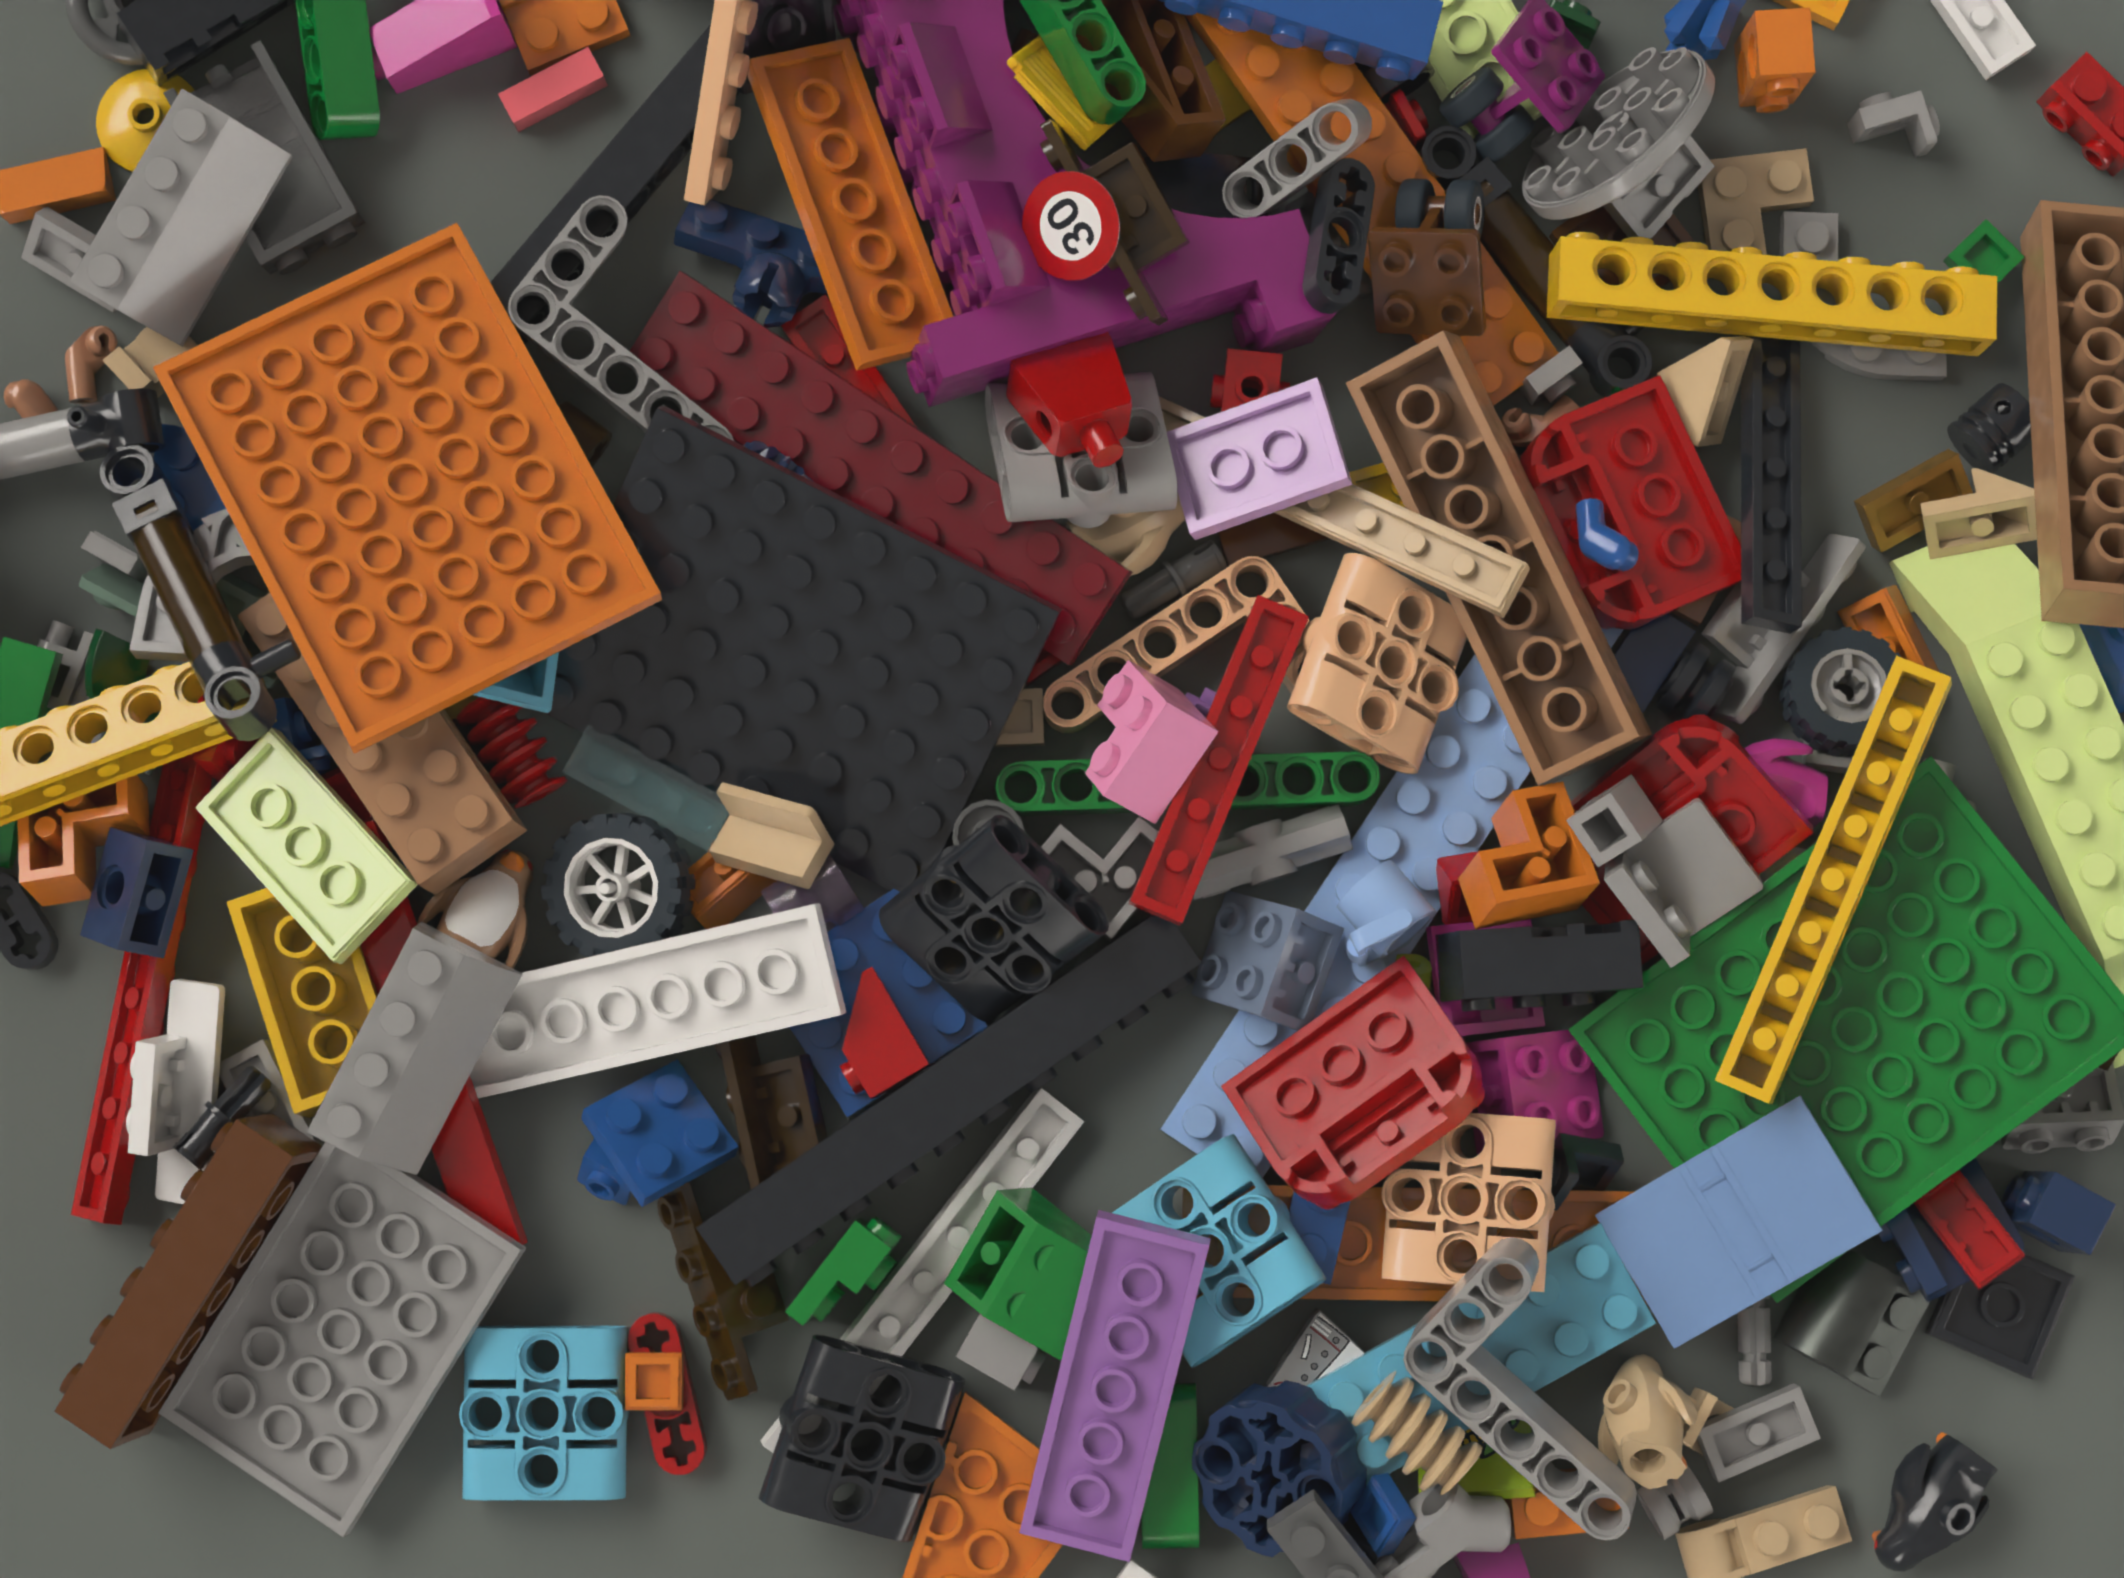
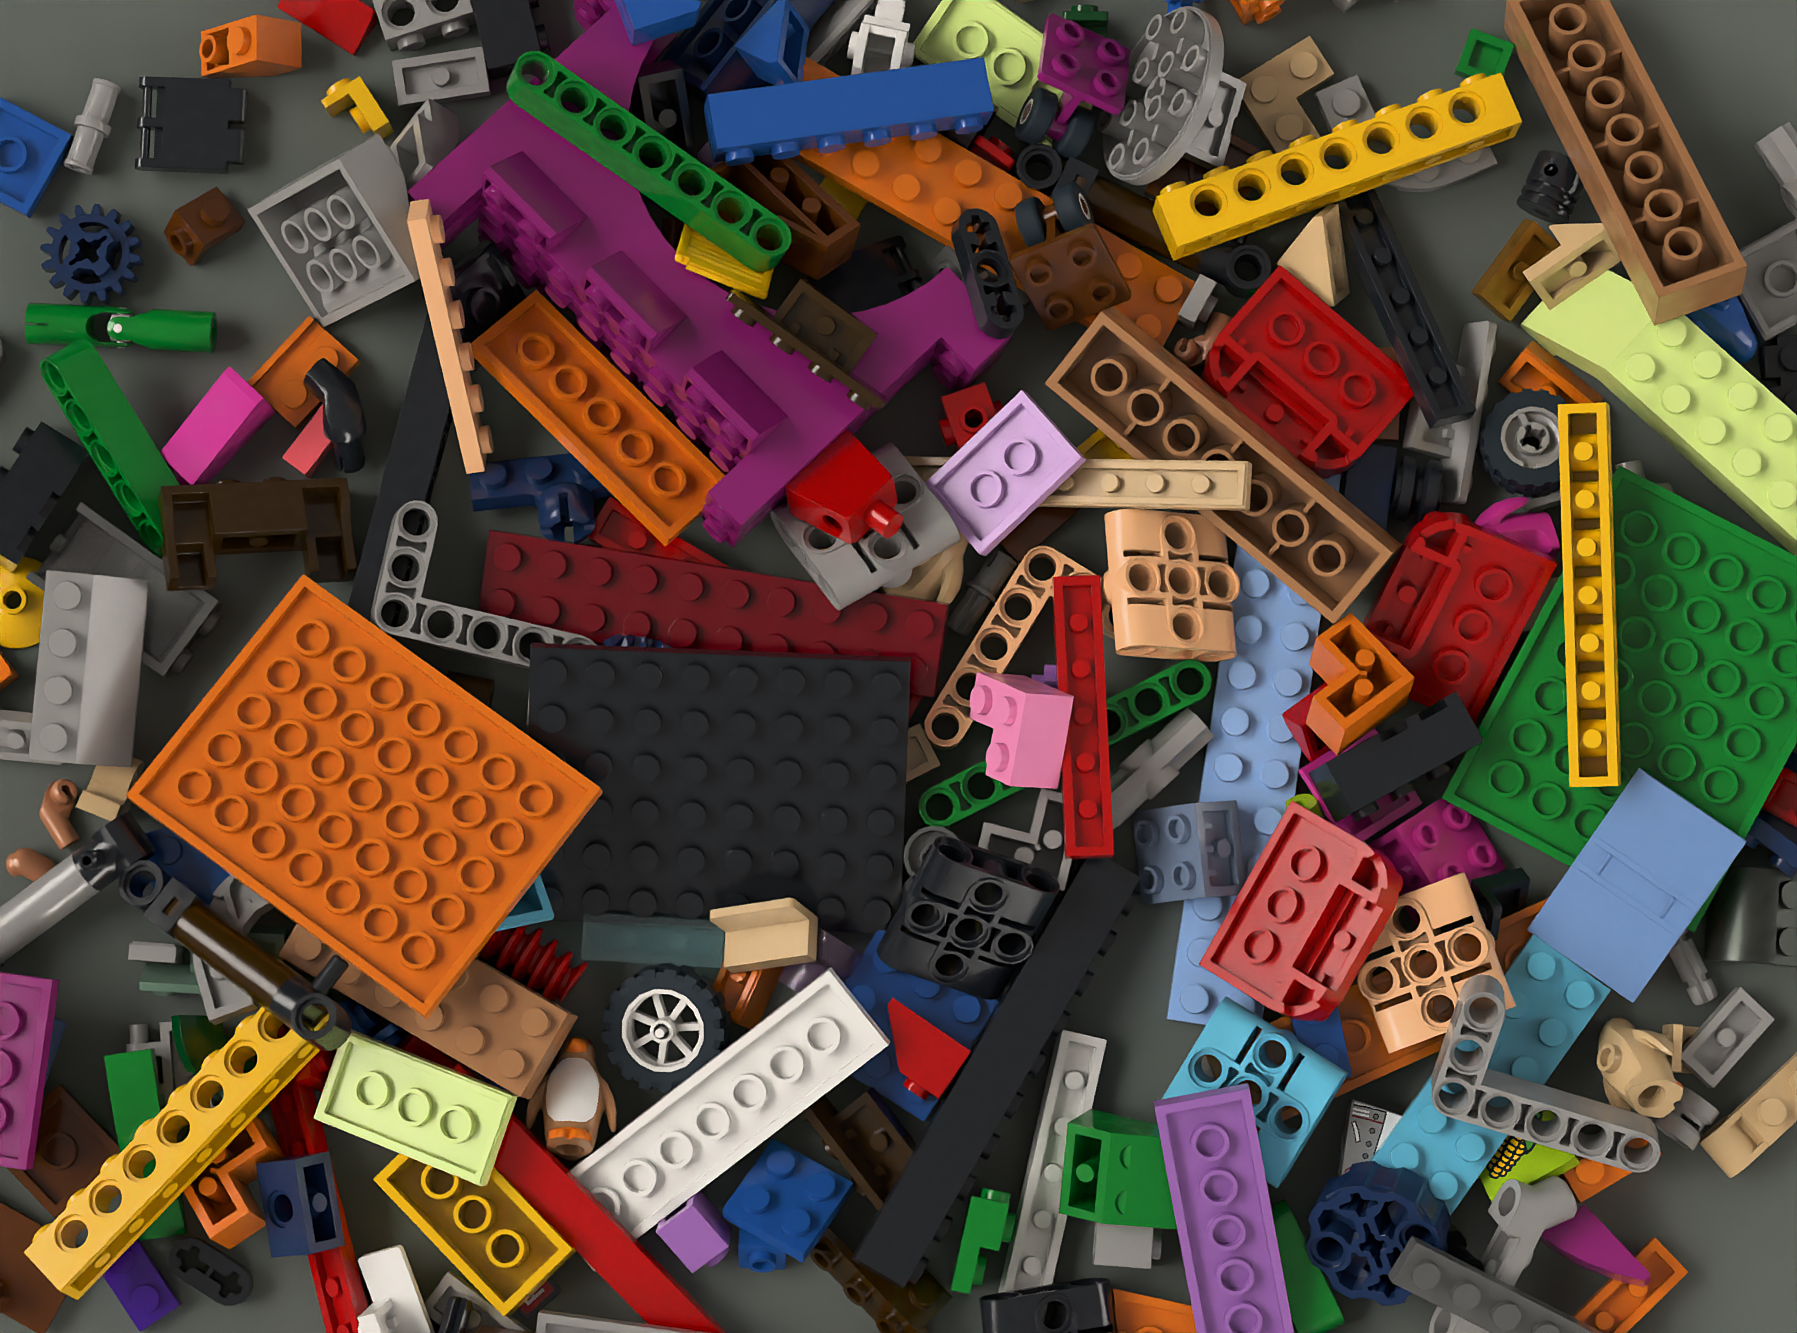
camera: 25 degrees left, 0 degrees up
(414, 1051) = (575, 1224): light grey slope -> none
(436, 144) = (256, 519): none -> dark brown bracket
(545, 1121) = (696, 1232): none -> medium lavender brick
(580, 75) = (342, 413): none -> black arm
(1071, 225) = (784, 364): sticker -> none
(1271, 164) = (914, 245): light grey beam -> none
(1383, 1514) = (1472, 1231): blue tile -> none
(1384, 912) = (1262, 775): light blue piece -> none
(1417, 1433) = (1470, 1157): tan piece -> none
(1601, 542) = (1295, 416): blue arm -> none
(1614, 821) = (1404, 624): light grey brick -> none
(1681, 879) = (1473, 645): light grey bracket -> none

